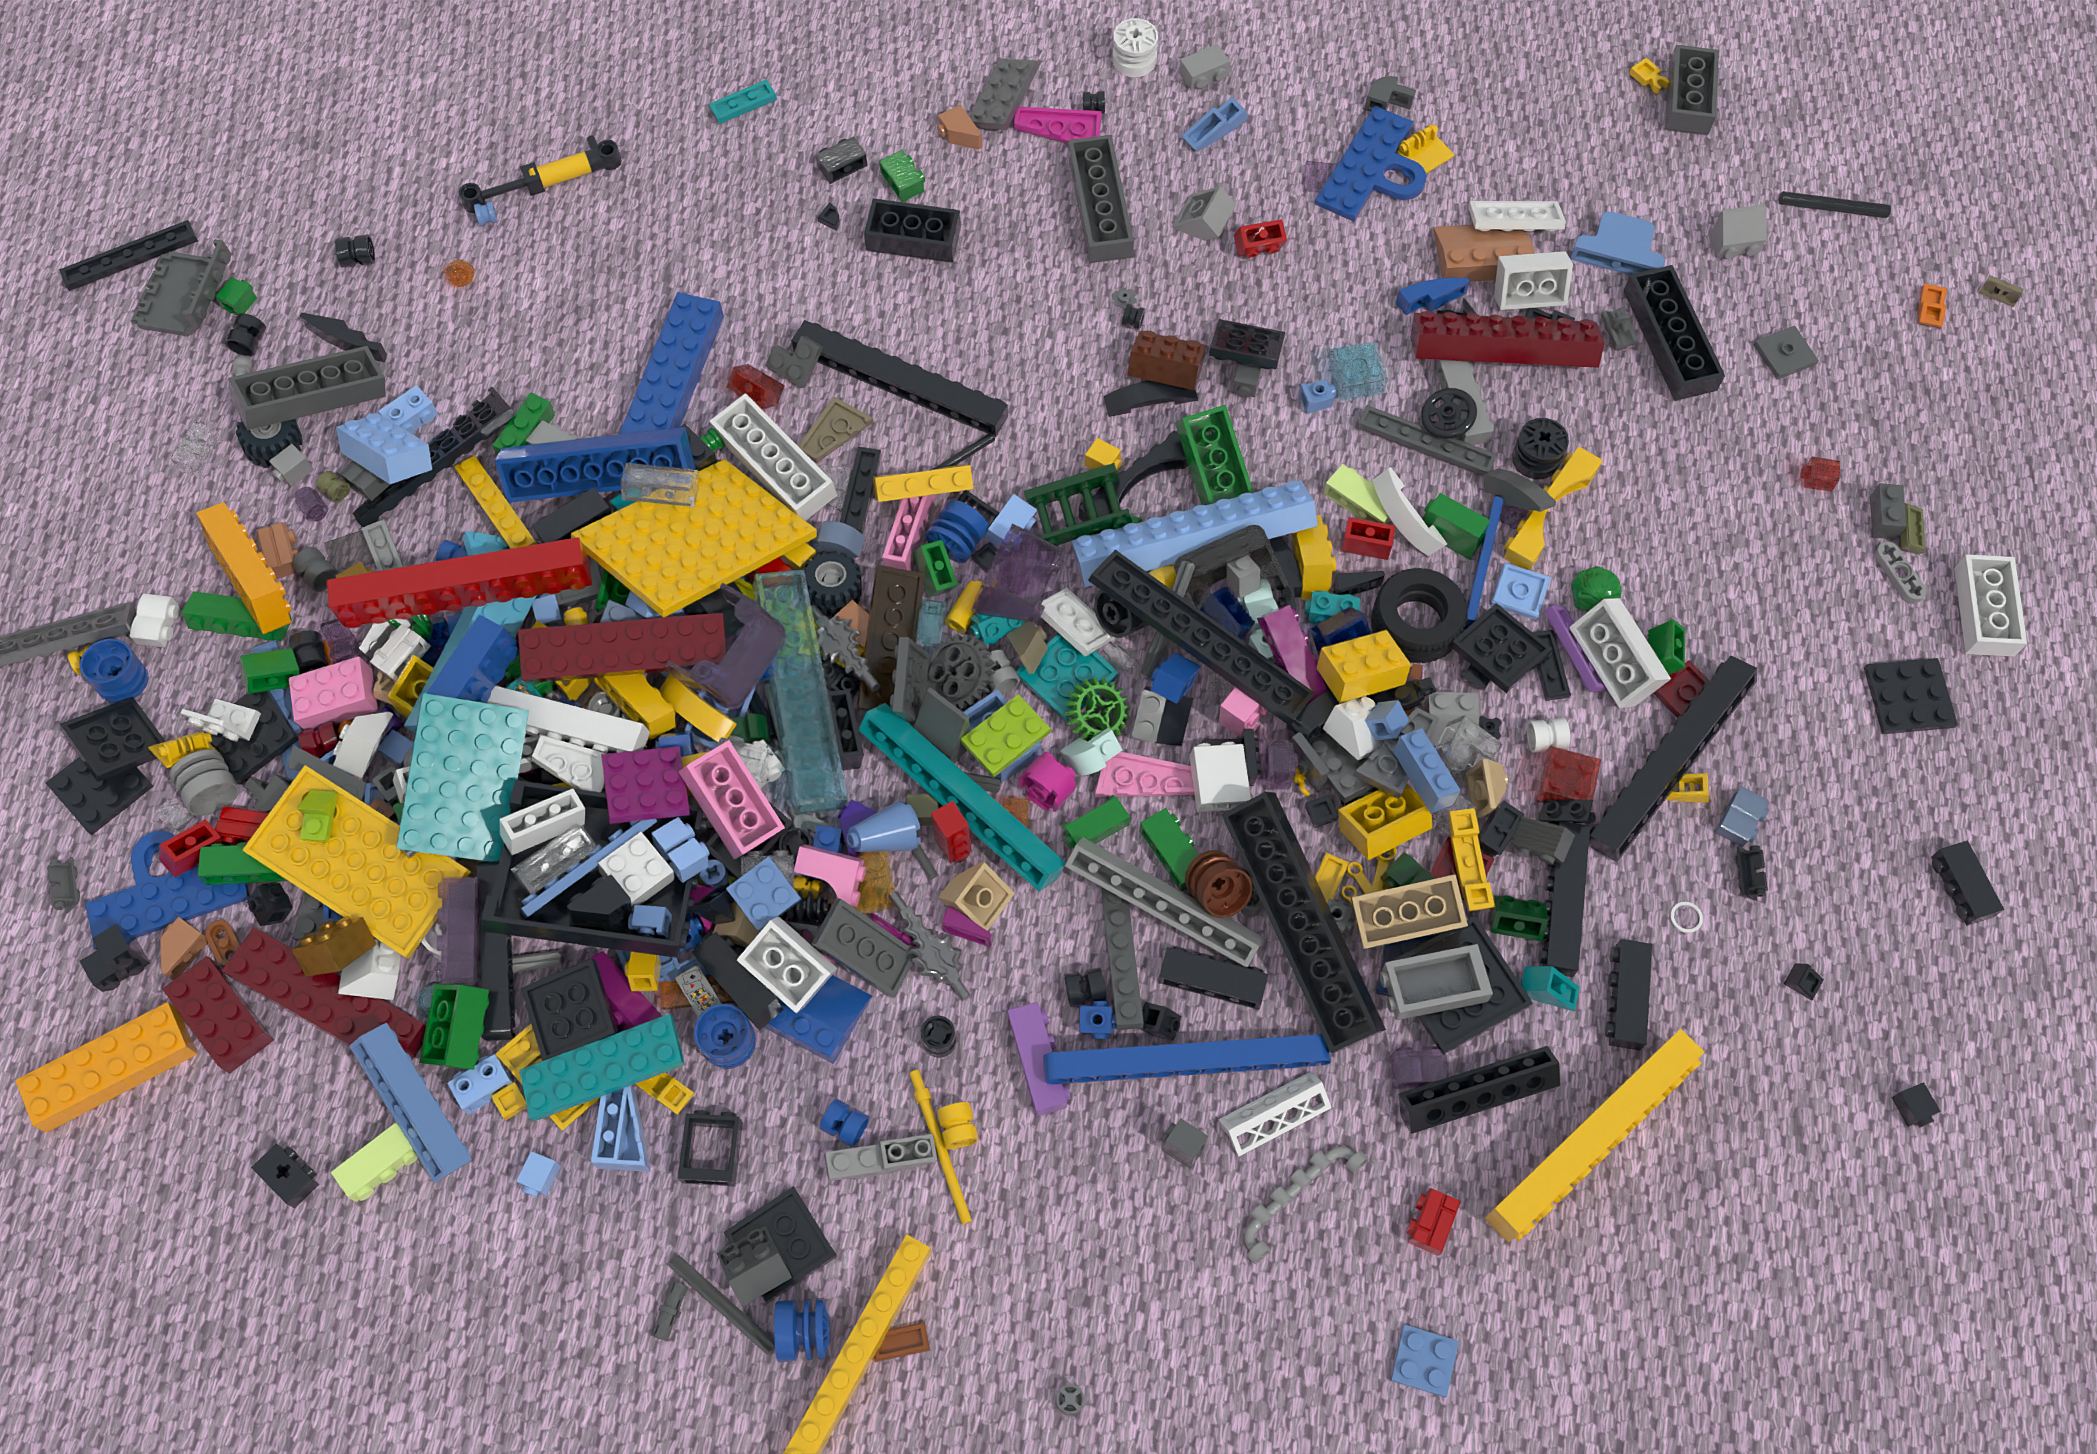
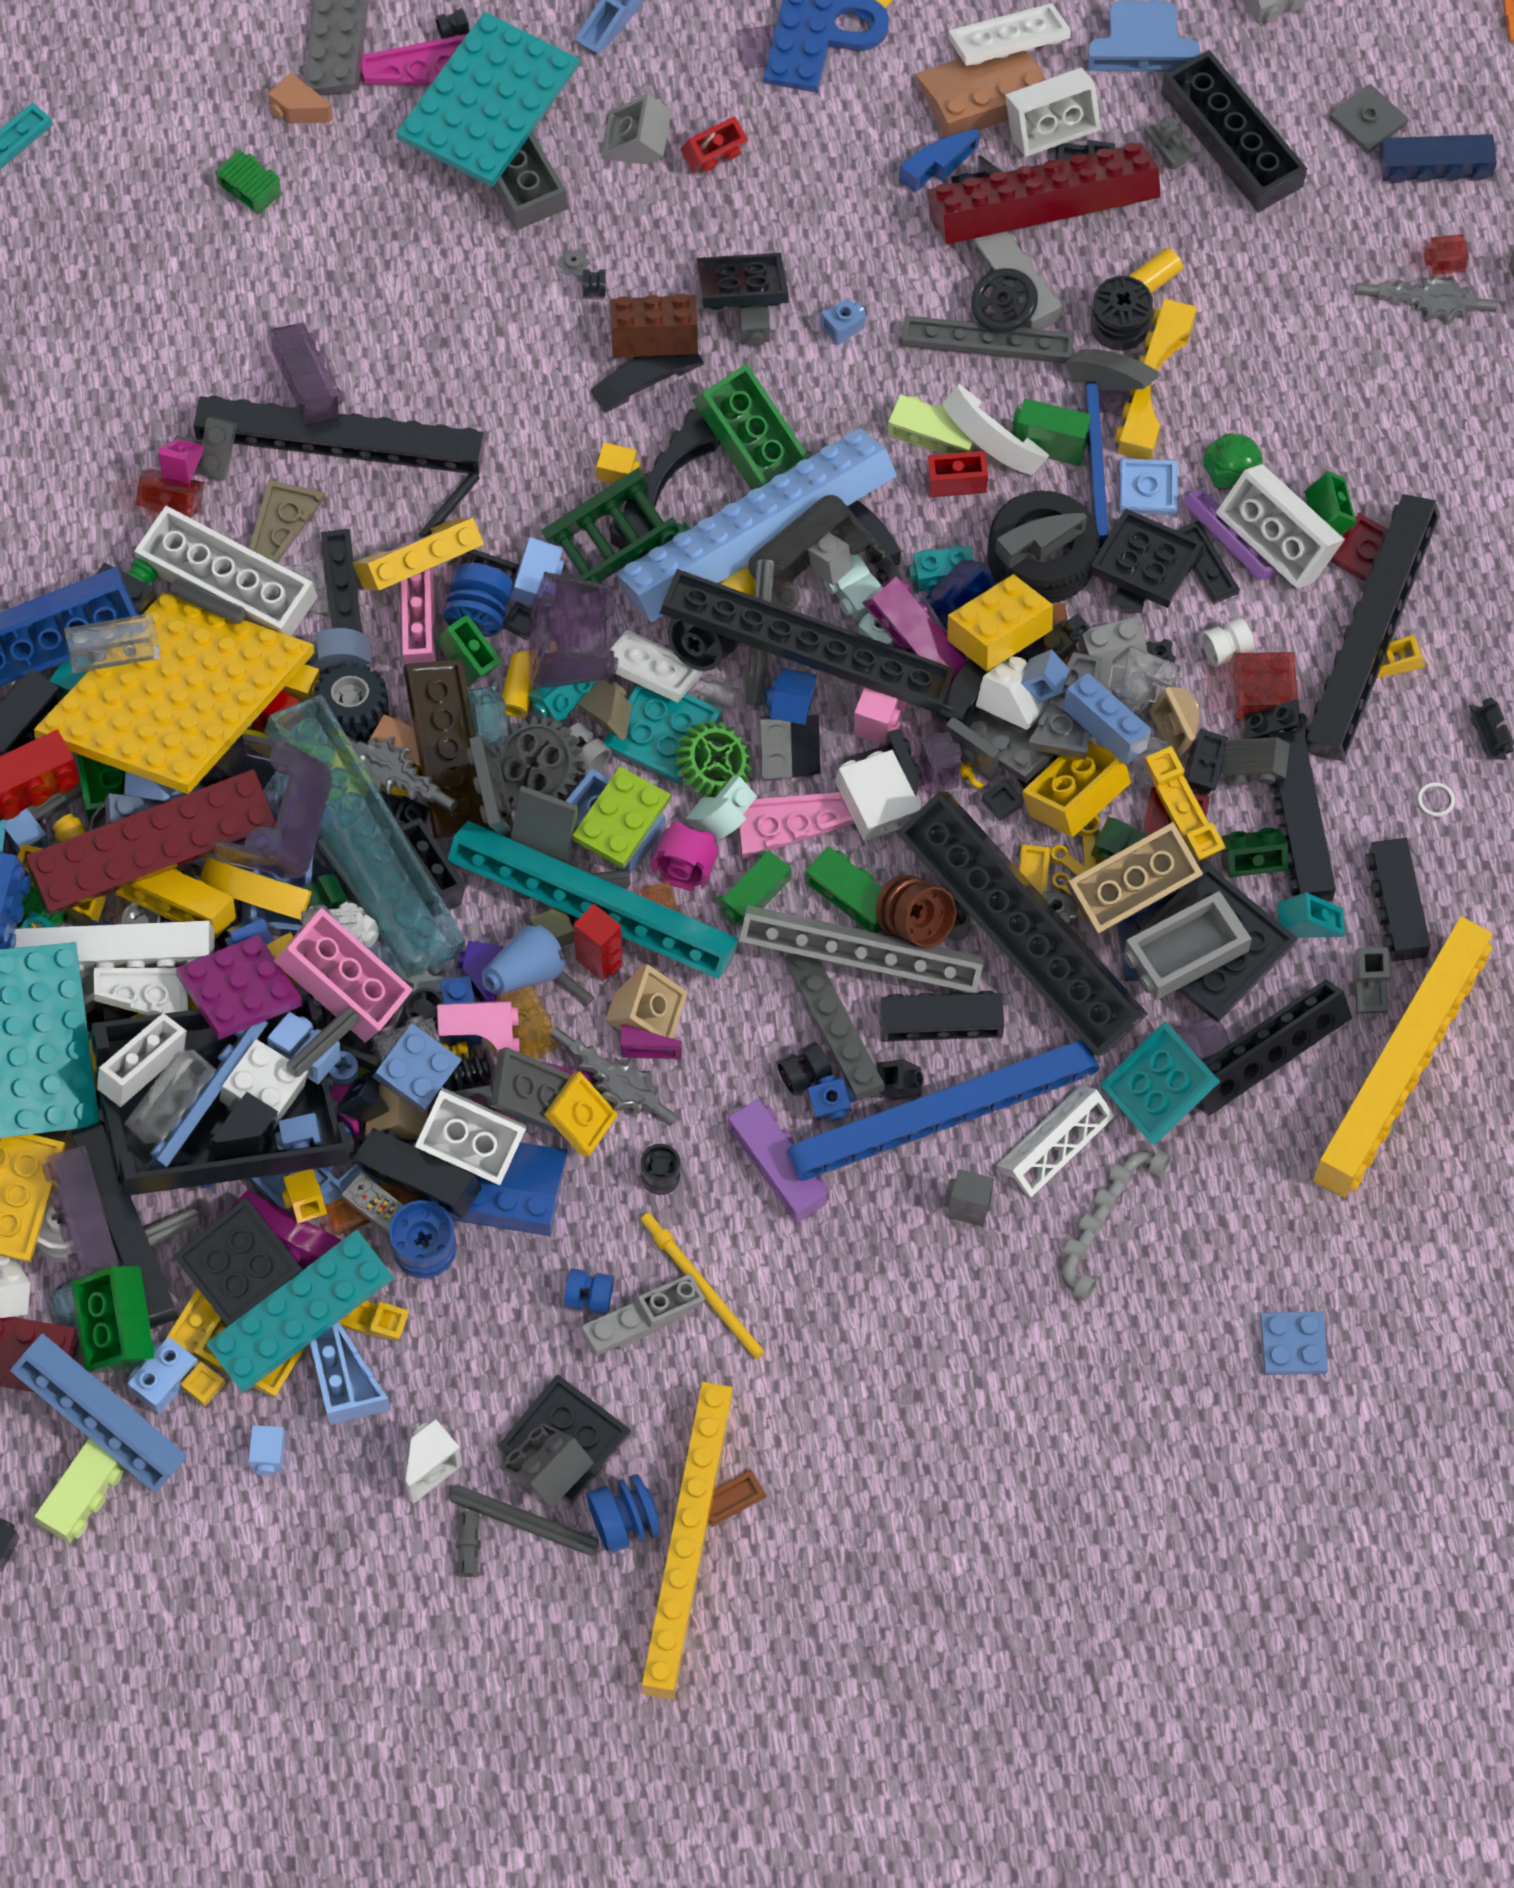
camera: 20 degrees left, 0 degrees up
(659, 1228) = (431, 1459): none -> white slope
(674, 365) = (60, 496): blue brick -> none
(691, 850) = (322, 1042): none -> dark grey axle
(702, 1118) = (457, 1393): black window -> none
(750, 474) = (208, 601): none -> dark grey axle
(769, 361) = (180, 459): none -> dark pink slope
(829, 217) = (177, 258): black tile -> none
(841, 159) = (165, 181): black brick -> none
(888, 324) = (305, 373): none -> clear purple brick
(889, 970) = (581, 1114): none -> yellow tile
(912, 230) = (289, 248): black brick -> none
(957, 1125) = (713, 1253): yellow wheel -> none
(1070, 1392) = (937, 1490): flat silver wheel -> none
(1098, 159) = (488, 99): none -> teal plate
(1228, 612) = (825, 604): clear blue brick -> none
(1314, 558) = (903, 515): yellow wedge -> none
(1357, 582) = (960, 529): black slope -> none
(1358, 371) = (882, 277): clear light blue brick -> none
(1377, 1094) = (1159, 1083): none -> teal plate
(1417, 606) = (1039, 537): none -> dark grey slope
(1433, 1221) = (1260, 1199): red brick -> none
(1581, 423) = (1159, 269): none -> yellow brick
(1586, 1054) = (1370, 977): none -> dark grey brick
(1742, 816) = (1465, 671): sand blue brick -> none
(1801, 505) = (1436, 297): none -> flat silver piece
(1834, 396) = (1437, 158): none -> dark blue brick

